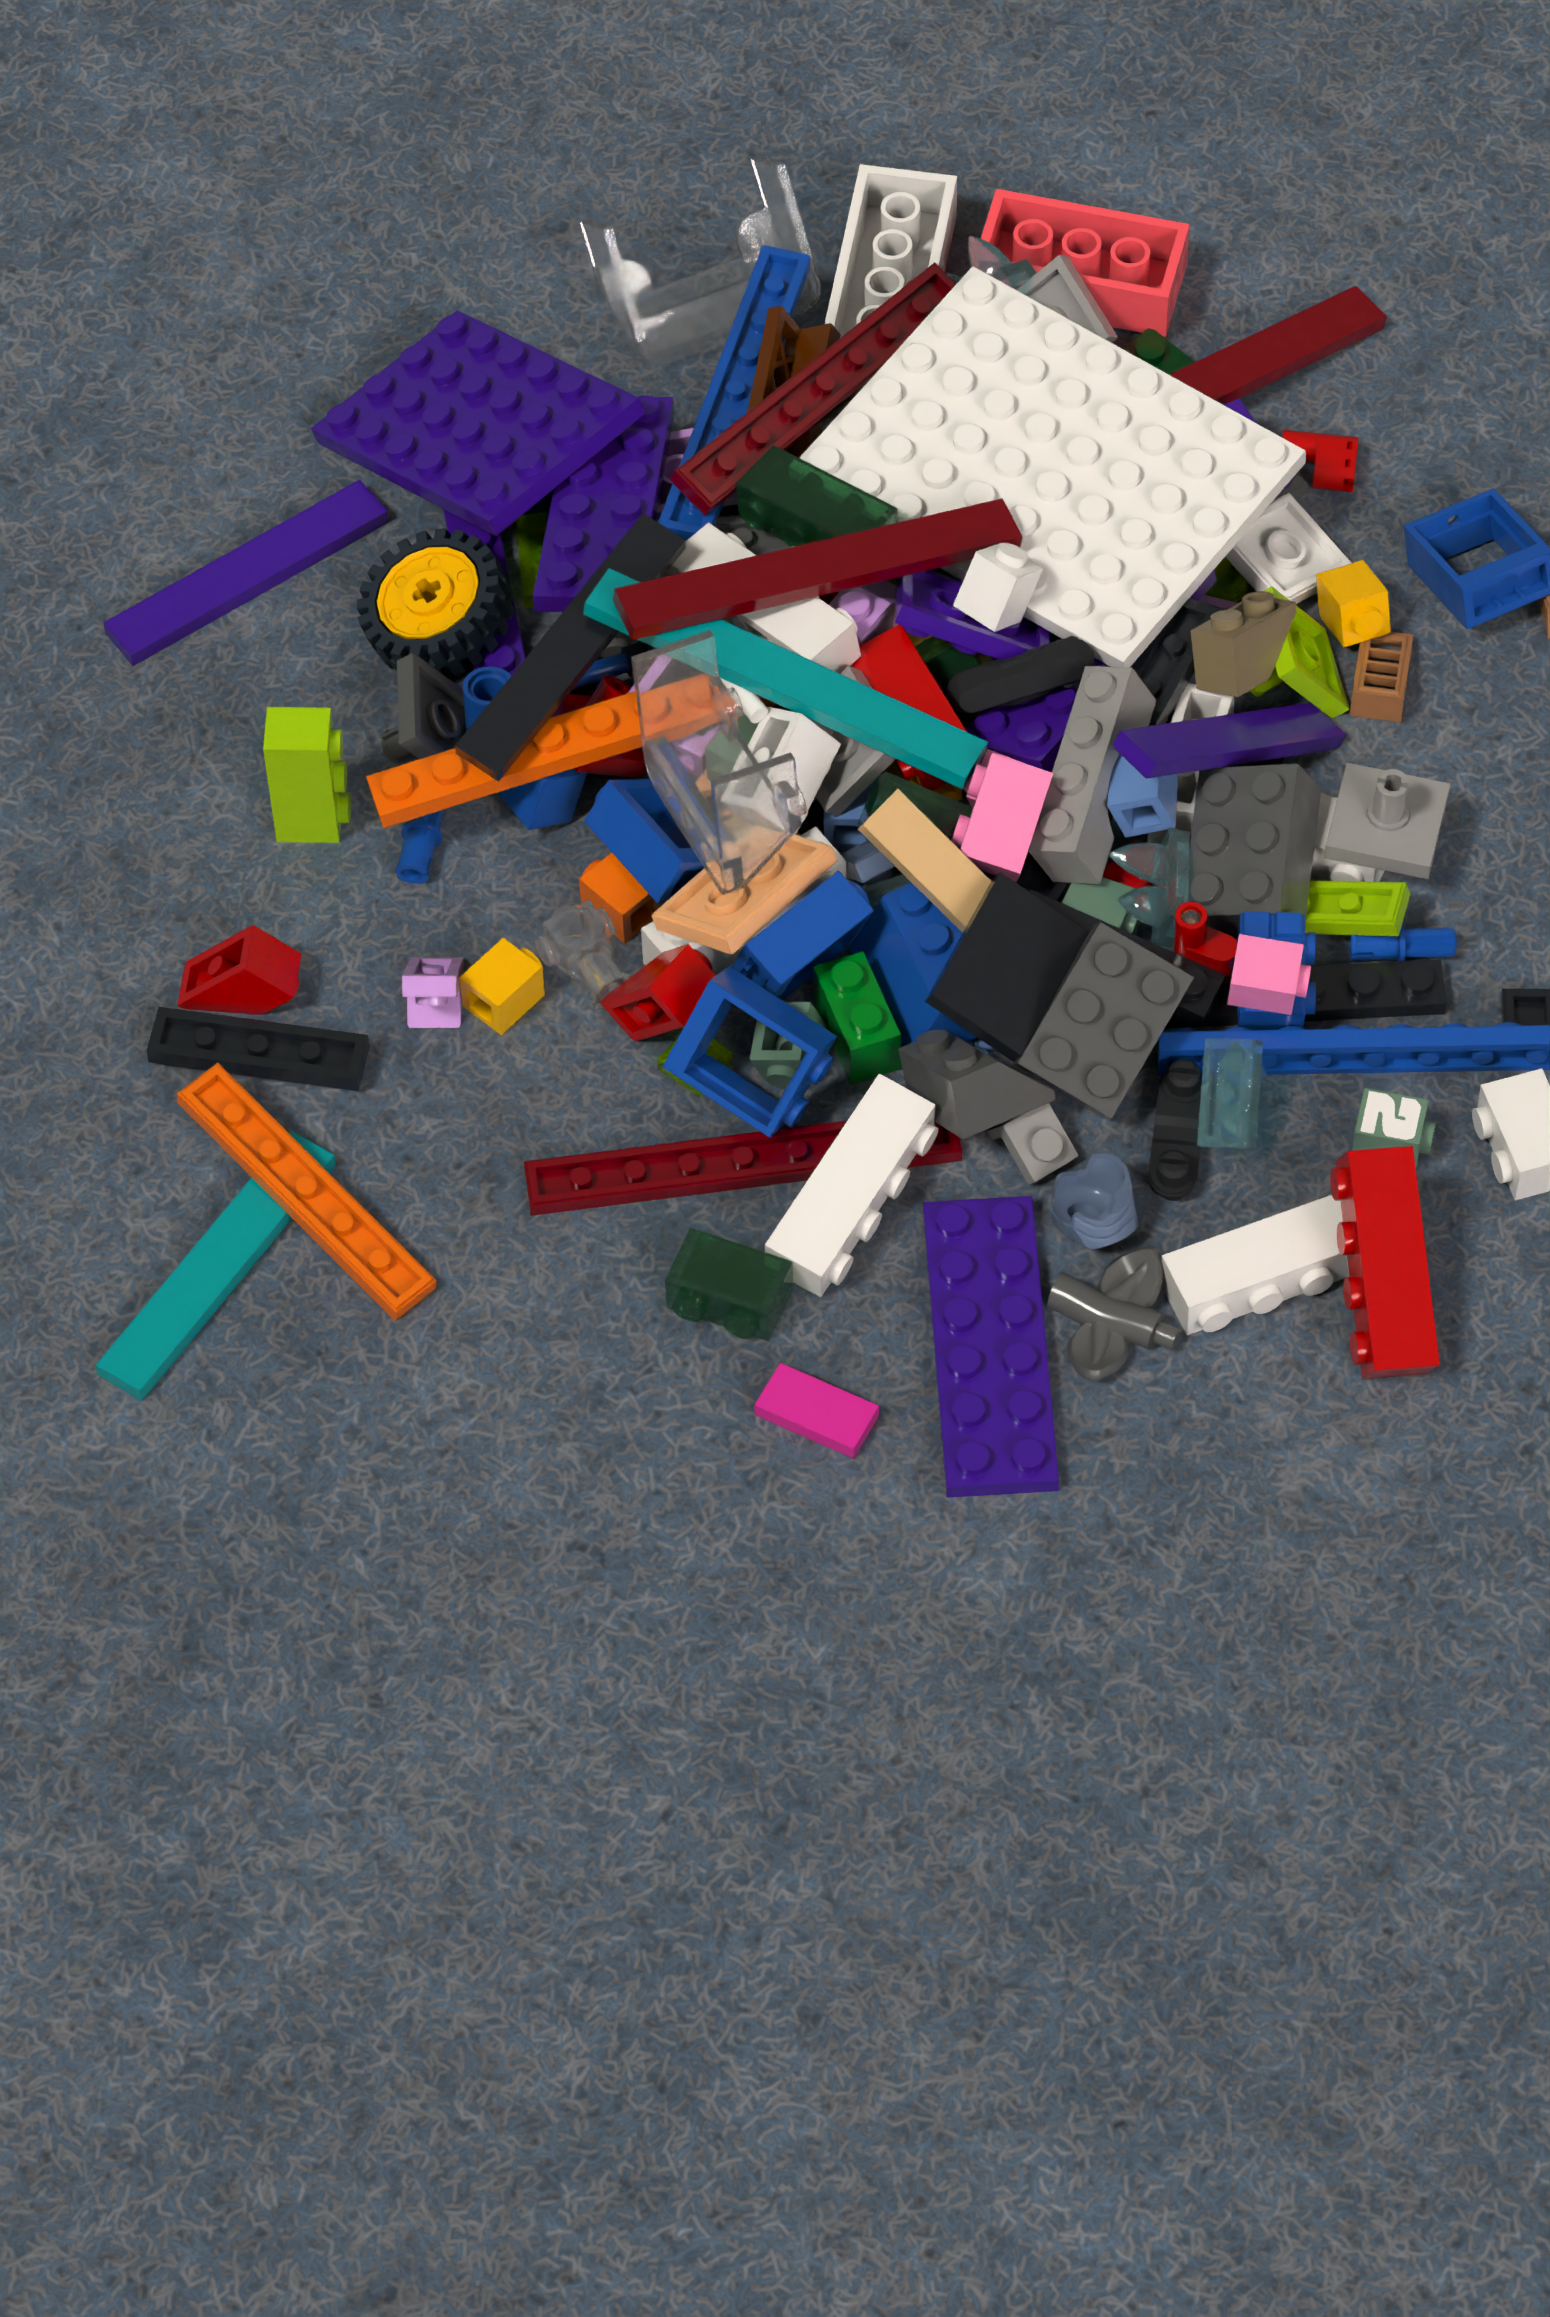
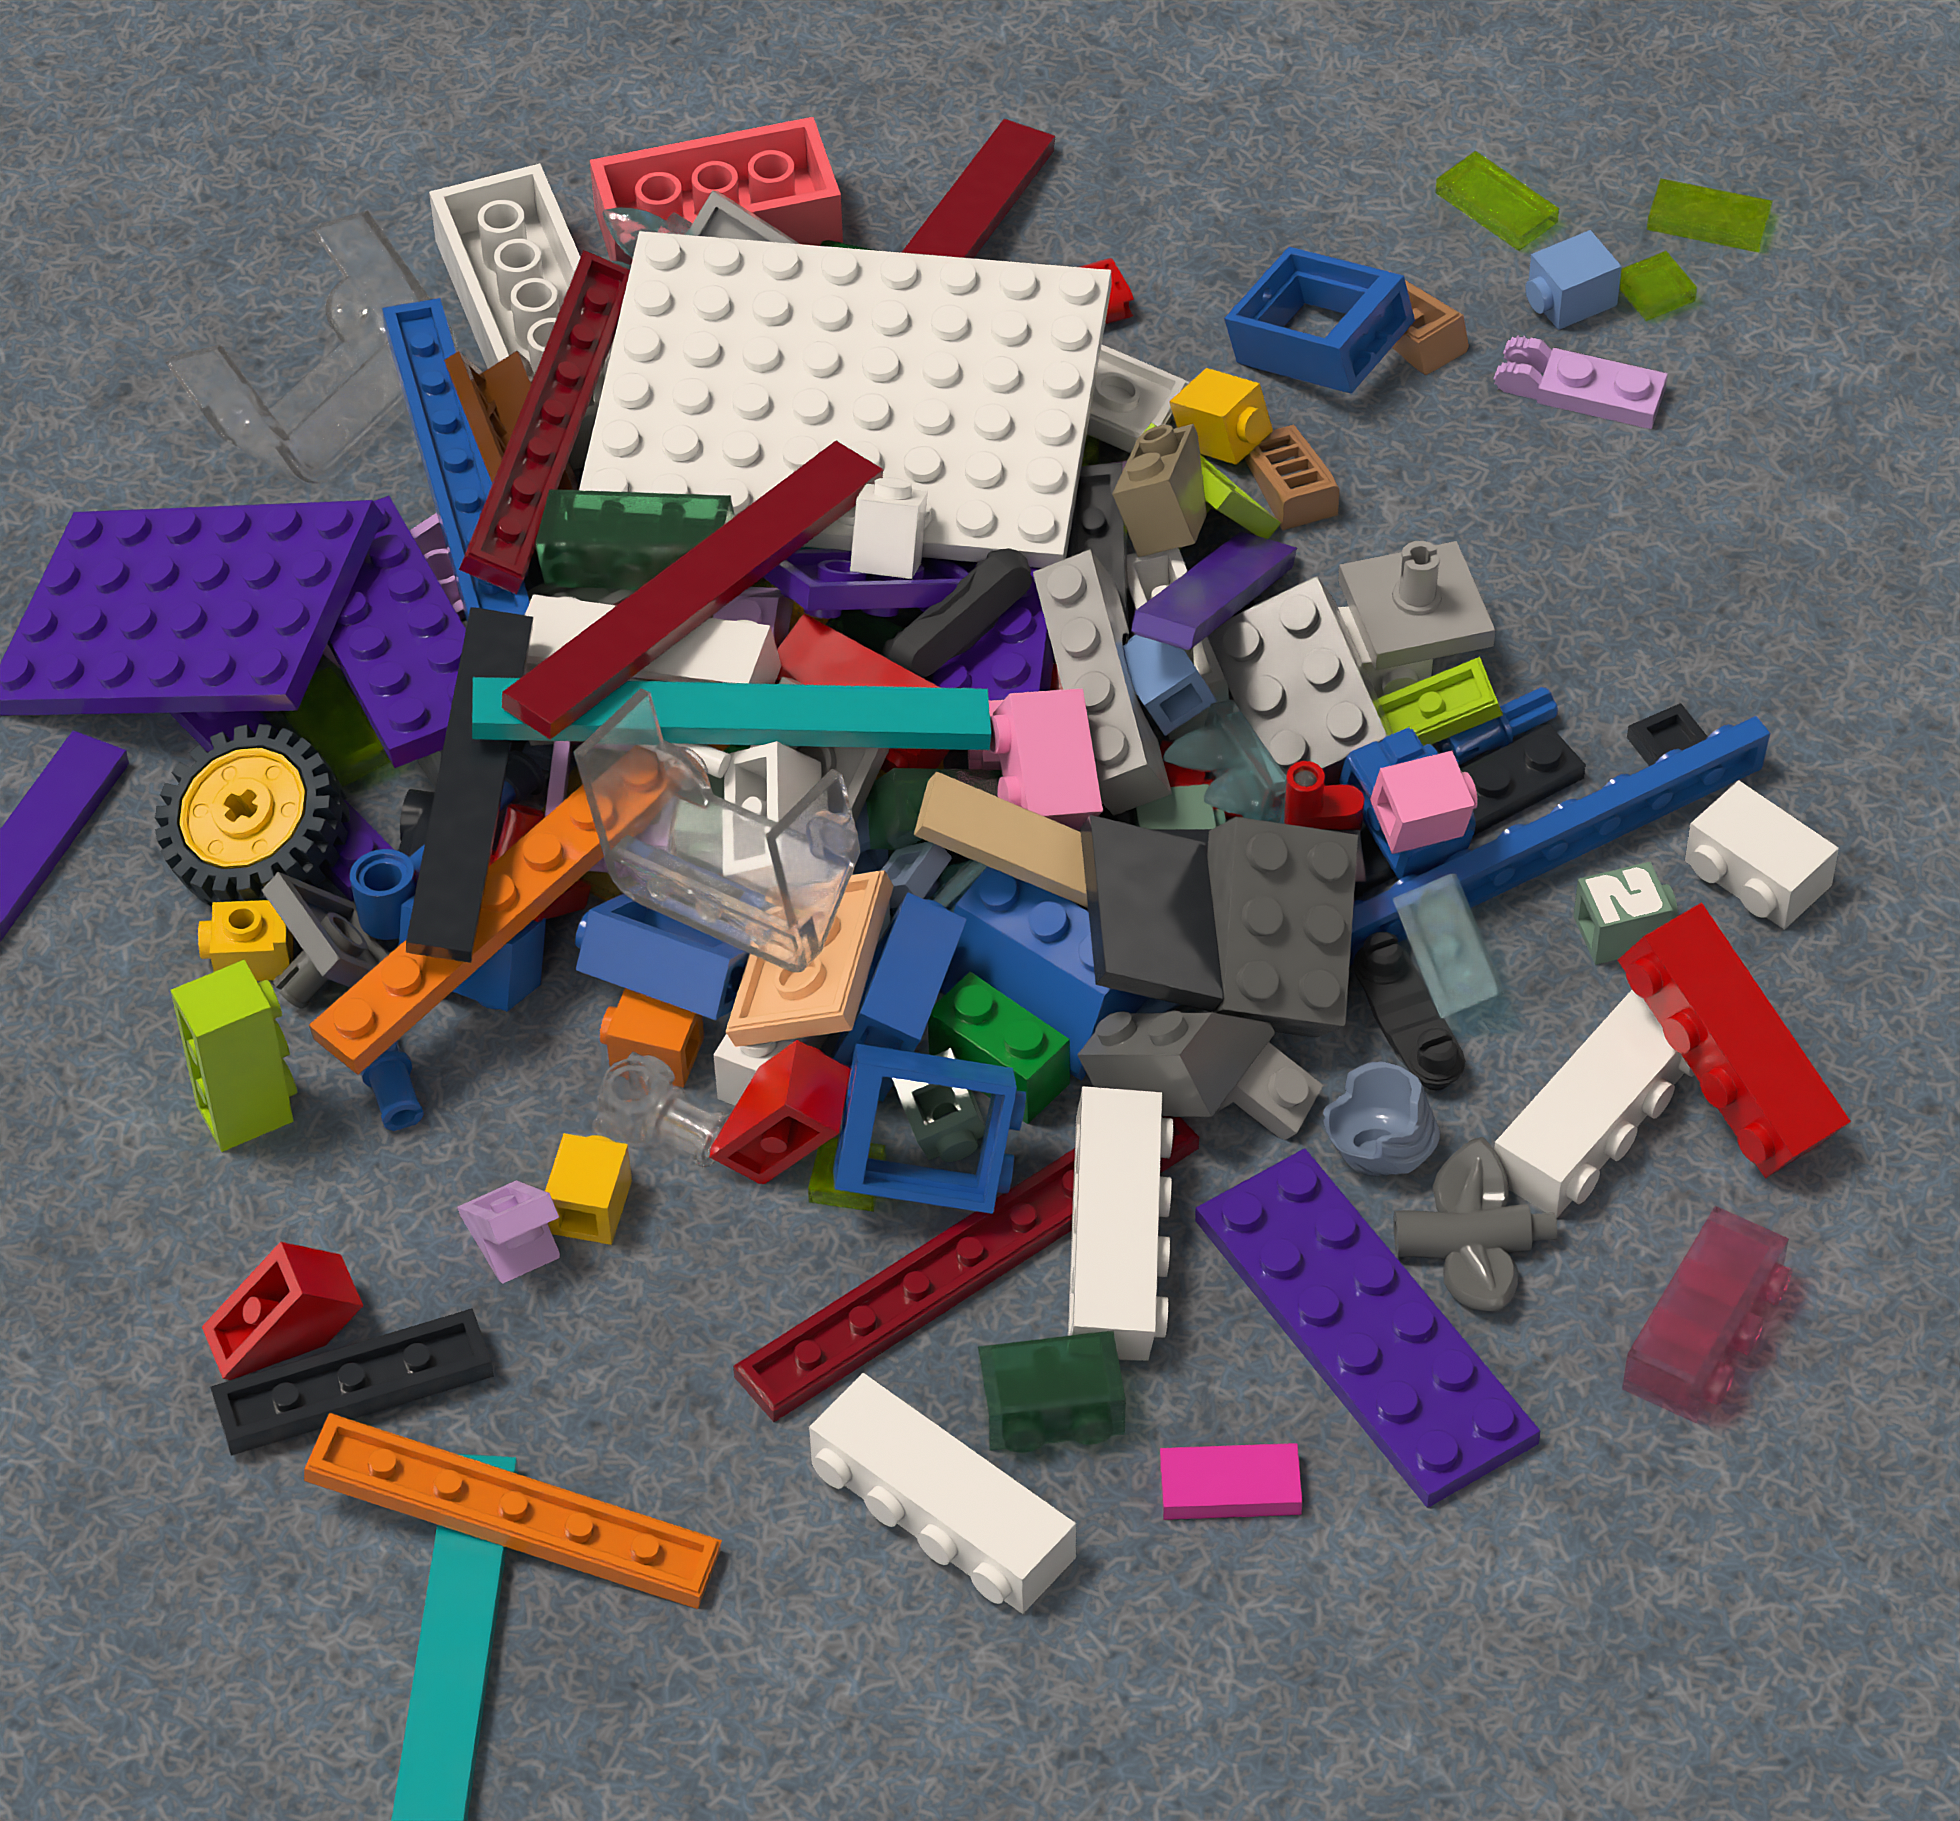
camera: 30 degrees left, 5 degrees down
(373, 692) = (247, 932): none -> yellow brick
(605, 1321) = (942, 1494): none -> white brick
(1237, 1456) = (1708, 1315): none -> clear pink brick

